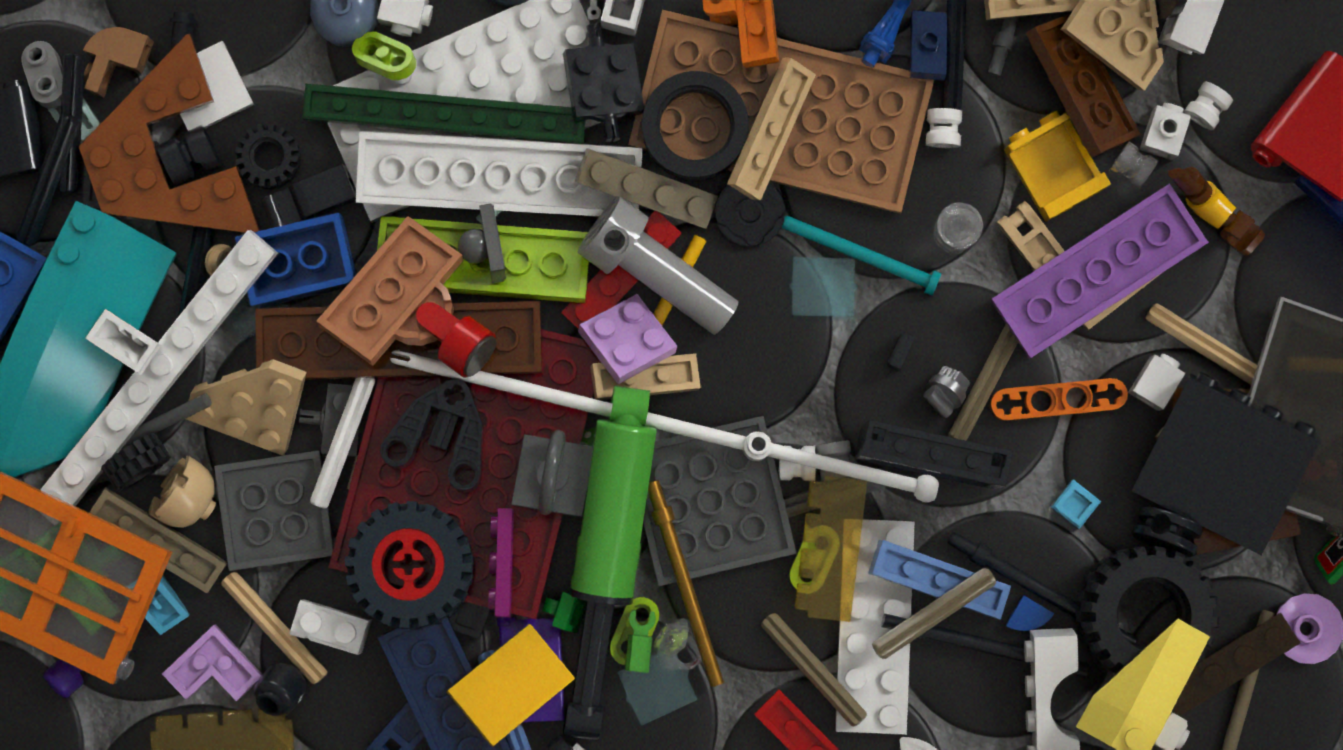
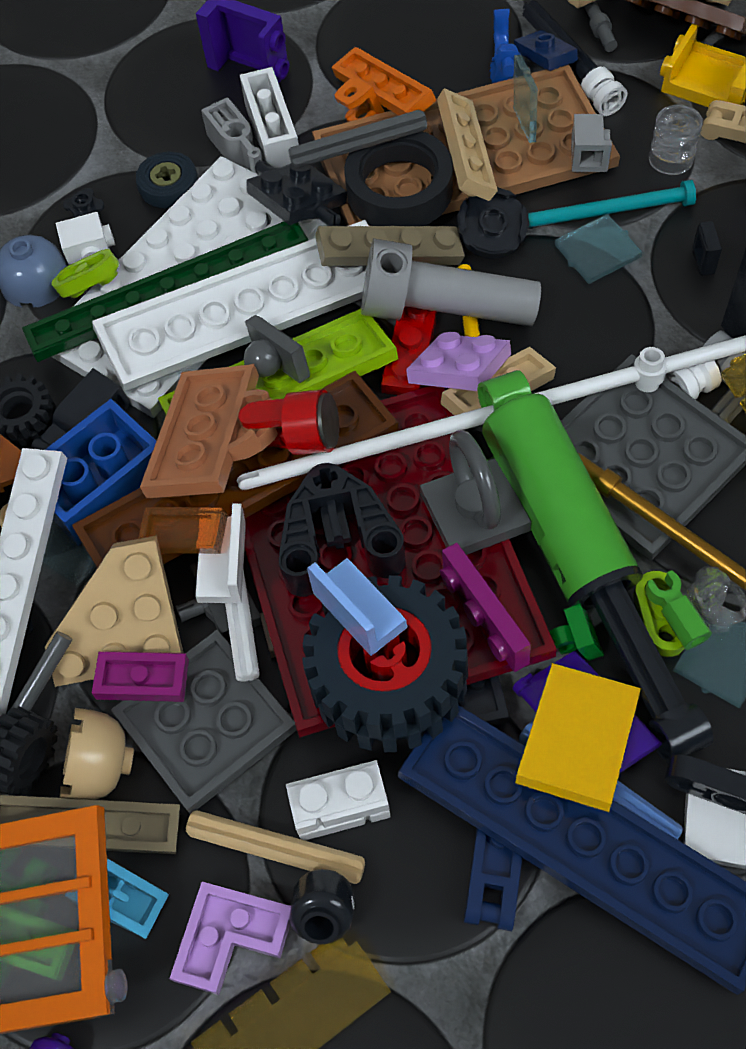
camera: 25 degrees left, 25 degrees down
(245, 459) = (140, 676): none -> magenta plate
(329, 374) = (185, 529): none -> clear orange tile
(345, 410) = (222, 574): none -> white panel
(407, 525) = (357, 605): none -> light blue panel
(677, 76) = (357, 138): none -> dark grey axle
(848, 118) = (525, 98): none -> clear light blue piece
(877, 191) = (590, 144): none -> light grey brick

